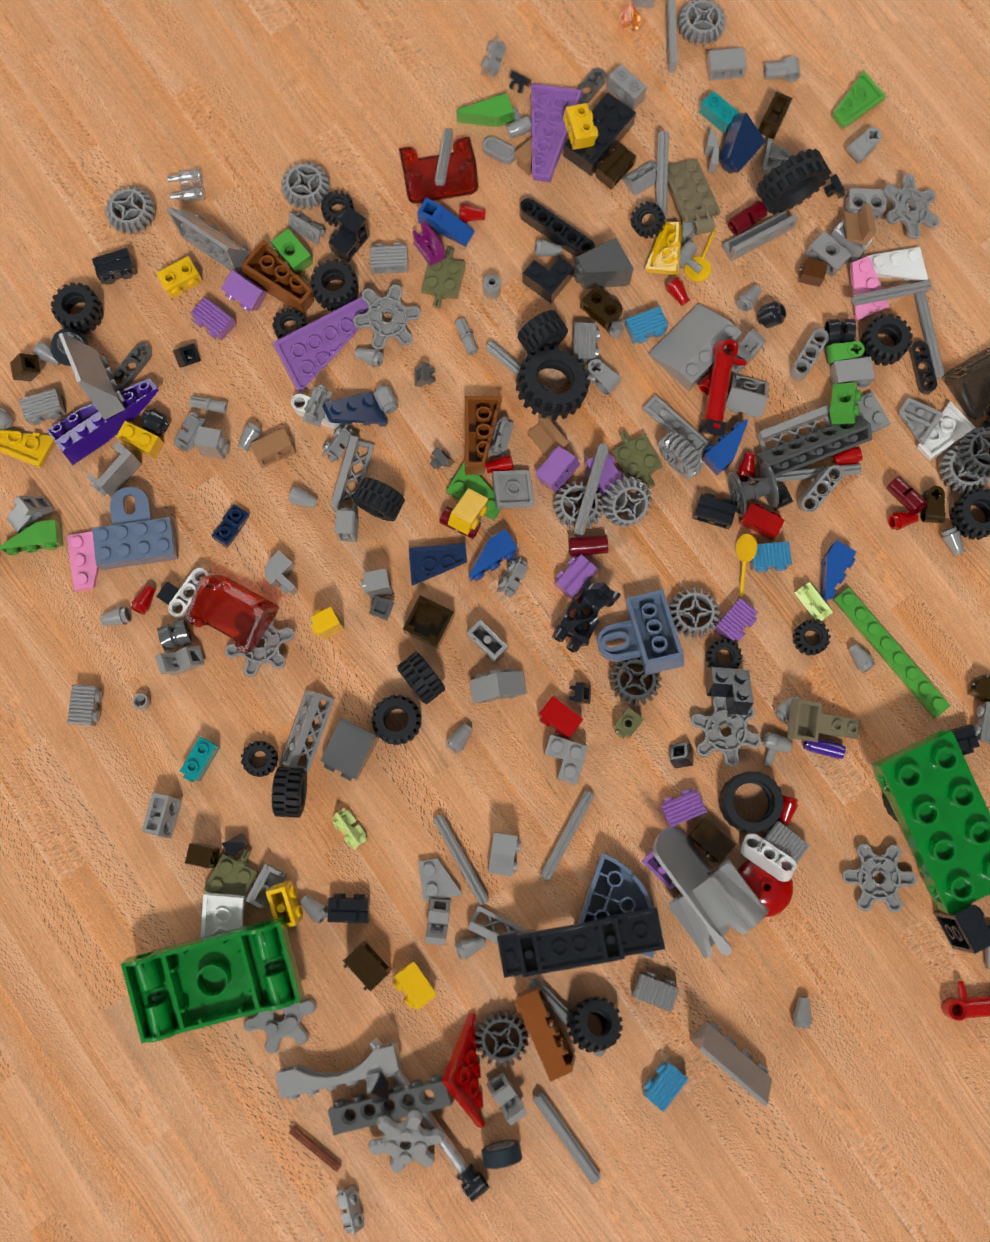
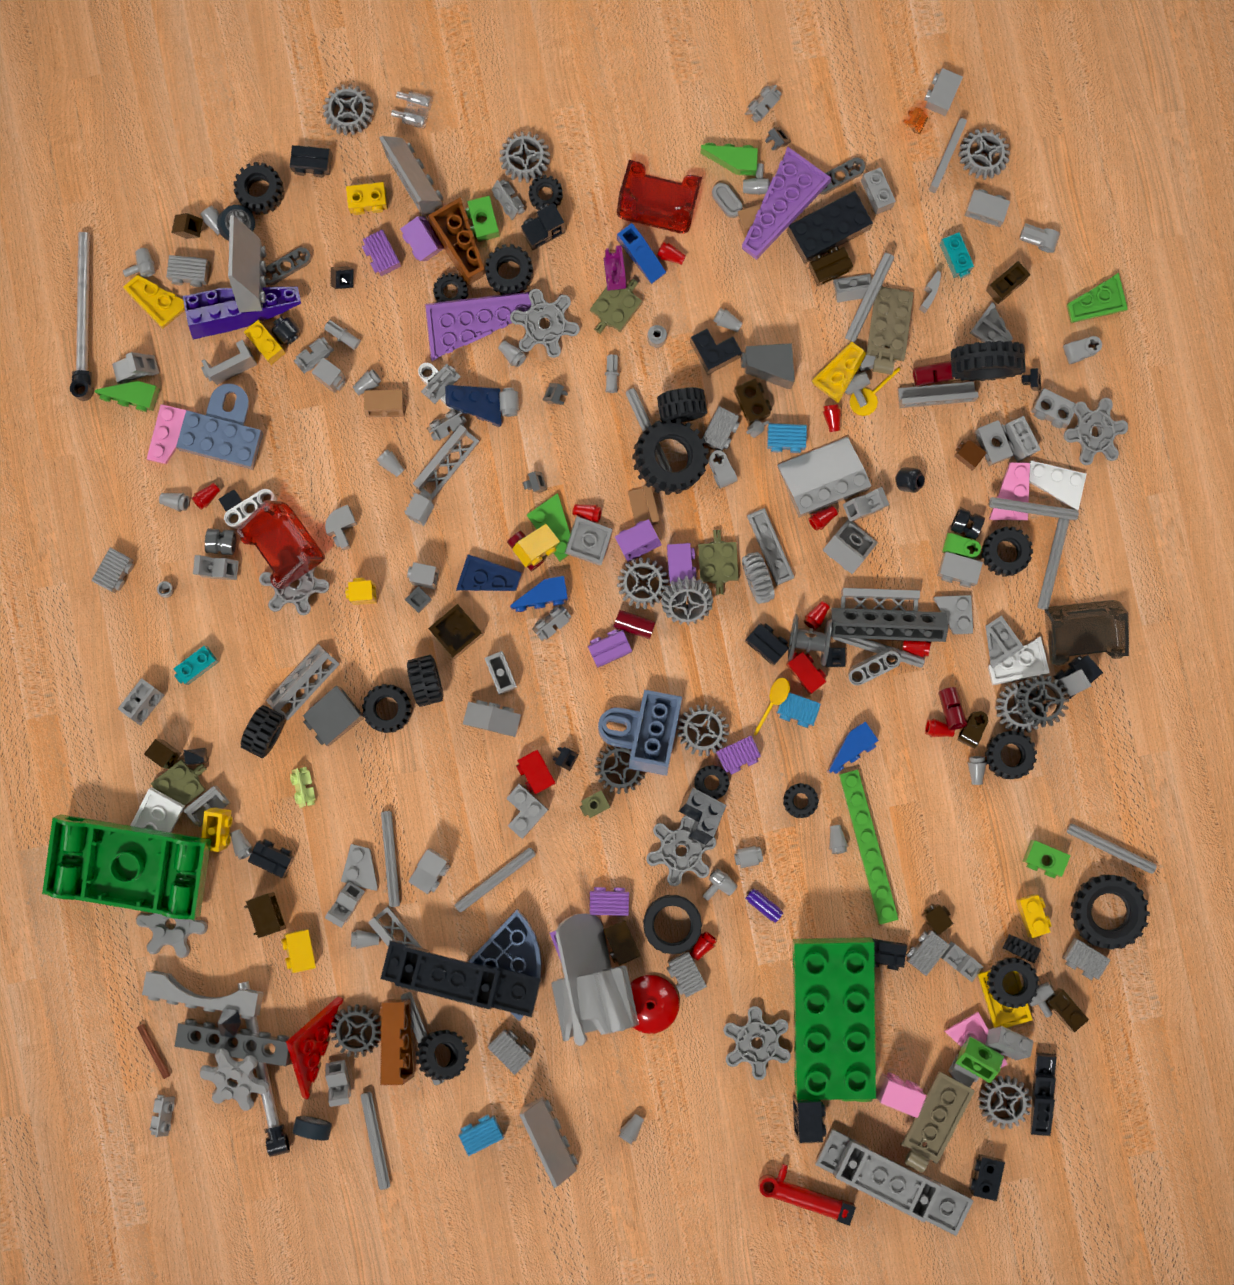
camera: 25 degrees right, 5 degrees up
(231, 526) = (314, 460): dark blue slope -> none
(248, 754) = (241, 680): black tyre -> none
(378, 499) = (459, 497): black tyre -> none
(389, 258) = (572, 265): light grey brick -> none
(444, 156) = (669, 186): light grey axle -> none
(459, 738) = (436, 750): light grey cone -> none
(480, 426) = (583, 469): dark orange wedge -> none
(501, 437) = (599, 485): light grey hinge -> none
(553, 222) = (744, 297): black beam -> none
(572, 620) = (586, 691): black hips -> none
(580, 126) = (809, 217): yellow brick -> none
(591, 489) = (658, 574): light grey axle -> none
(641, 212) = (828, 326): black tyre -> none
(681, 755) = (631, 854): black slope -> none
(719, 386) = (804, 559): red piece -> none
(724, 452) = (802, 592): blue slope -> none
(740, 144) = (960, 298): dark blue slope -> none
(747, 299) = (897, 453): light grey cone -> none
(772, 866) = (665, 971): white beam -> none
(808, 721) = (757, 875): dark tan plate -> none
(812, 347) = (934, 527): light grey beam -> none
(813, 602) = (818, 769): yellowish green hinge -> none
(844, 403) = (935, 596): bright green brick -> none
(860, 226) = (1033, 430): medium nougat panel -> none
(925, 359) = (1029, 578): black beam -> none

